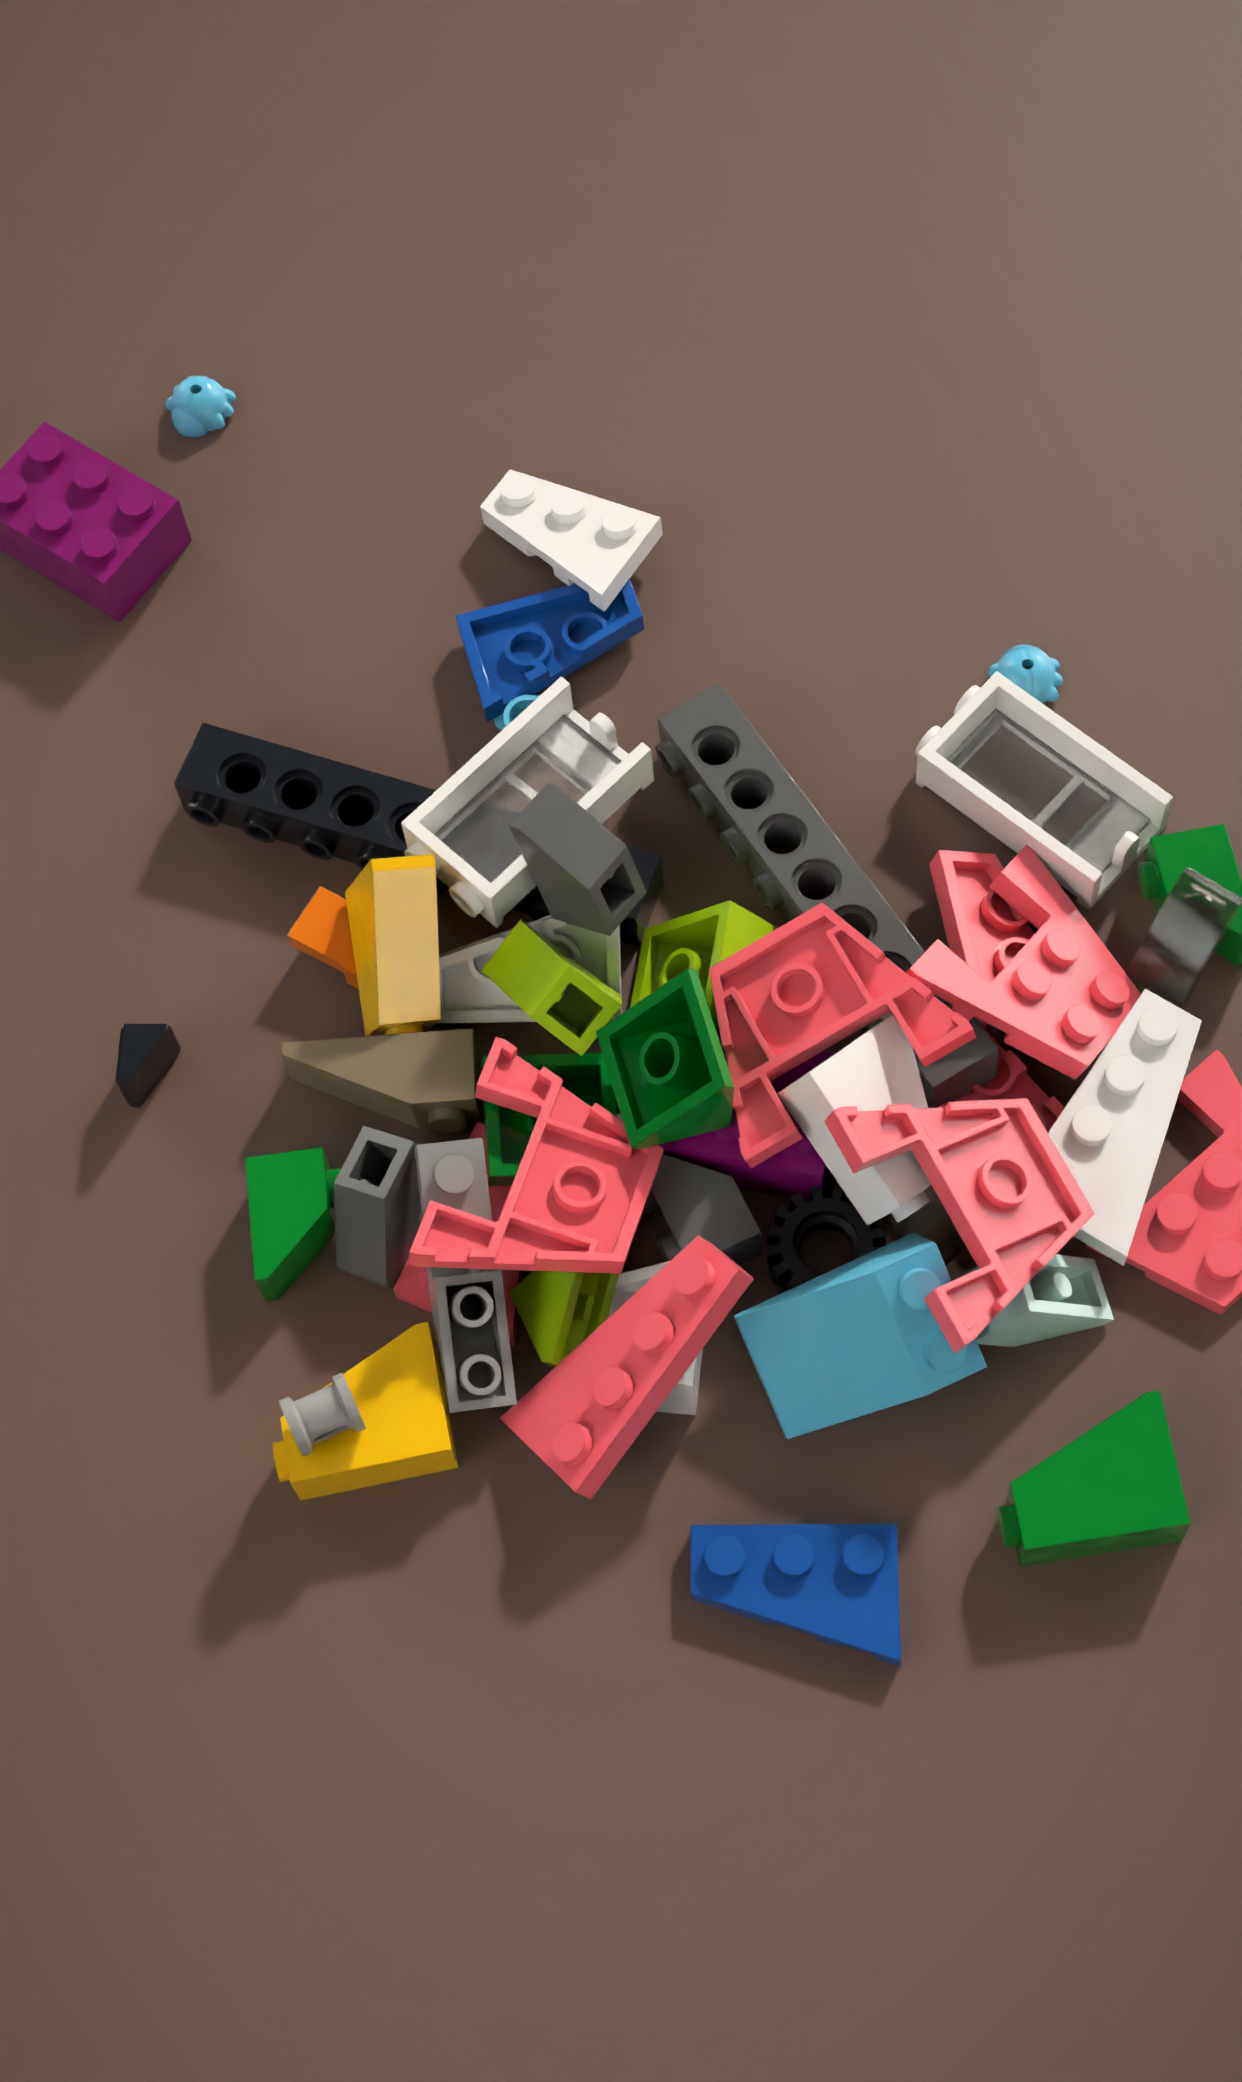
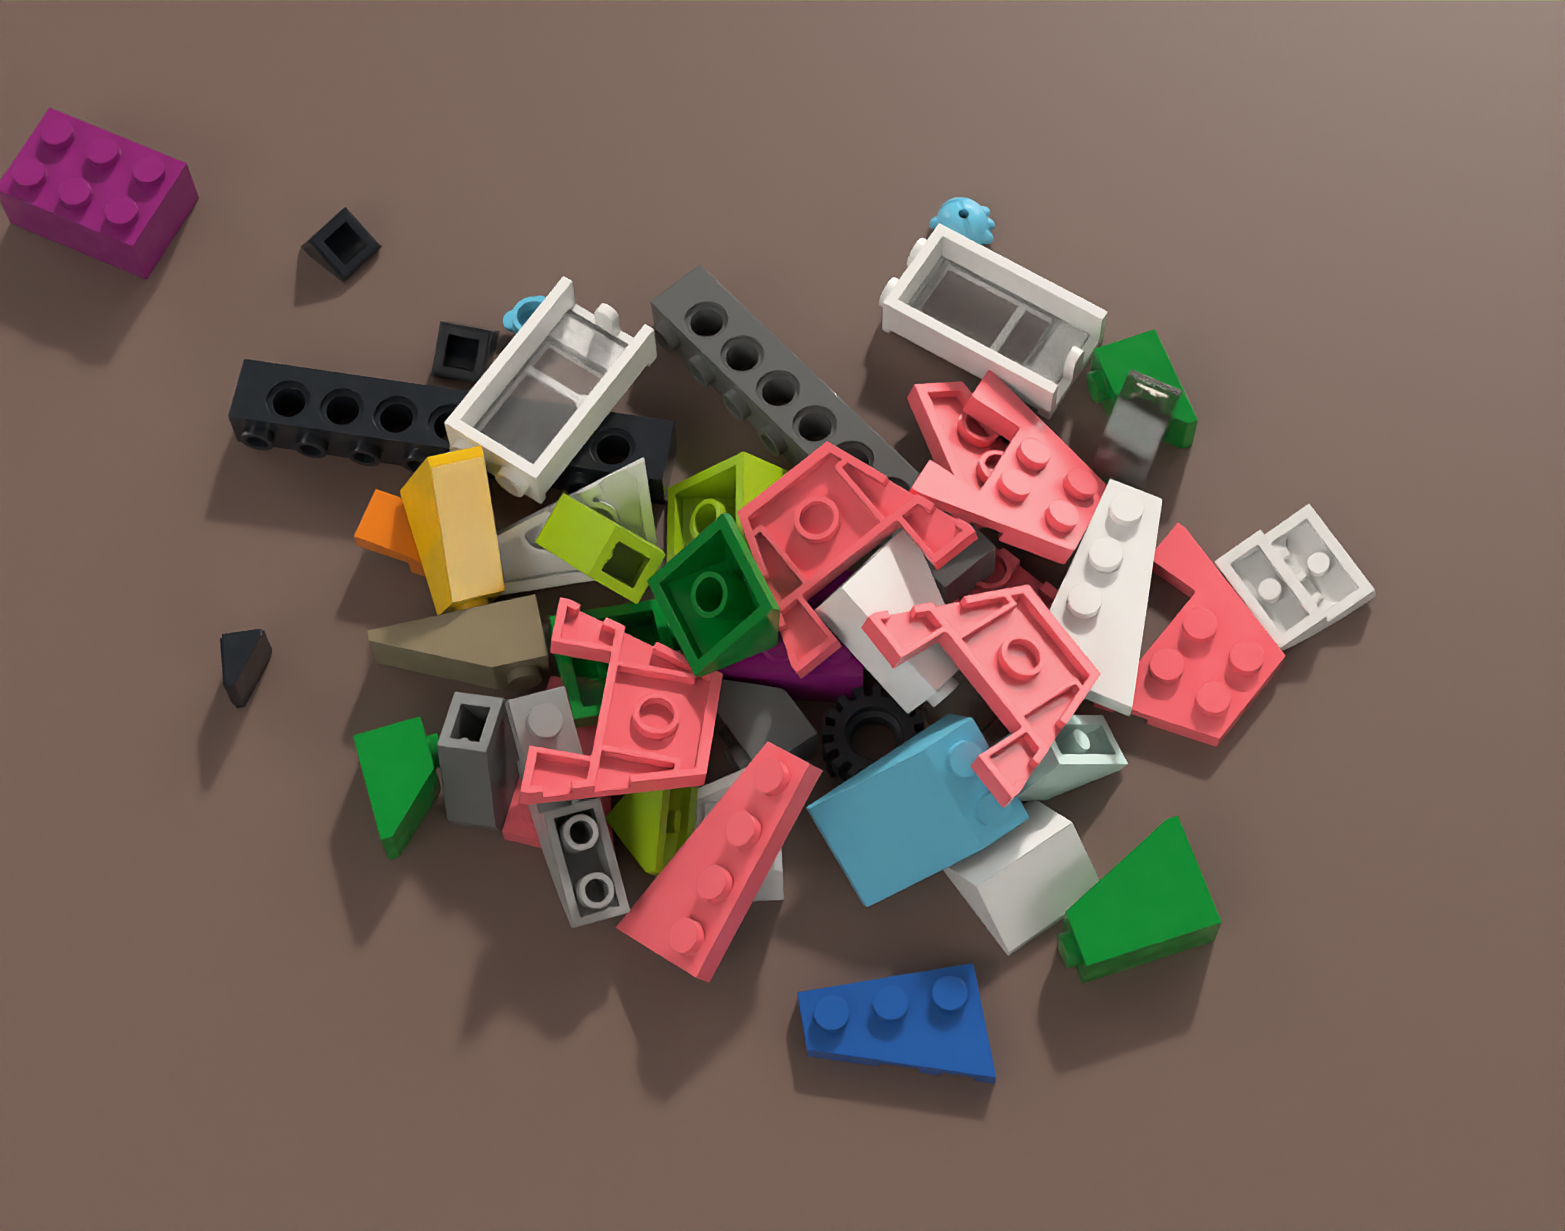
camera: 15 degrees left, 0 degrees up
(199, 406) = (184, 76): medium azure animal -> none
(322, 1414) = (464, 945): light grey bush -> none
(334, 611) = (341, 245): none -> black slope
(404, 1418) = (504, 949): yellow slope -> none
(445, 743) = (464, 351): none -> black slope
(539, 638) = (536, 244): blue wing -> none
(574, 532) = (549, 148): white wing -> none
(576, 862) = (607, 436): dark grey slope -> none
(974, 1433) = (1026, 877): none -> white slope

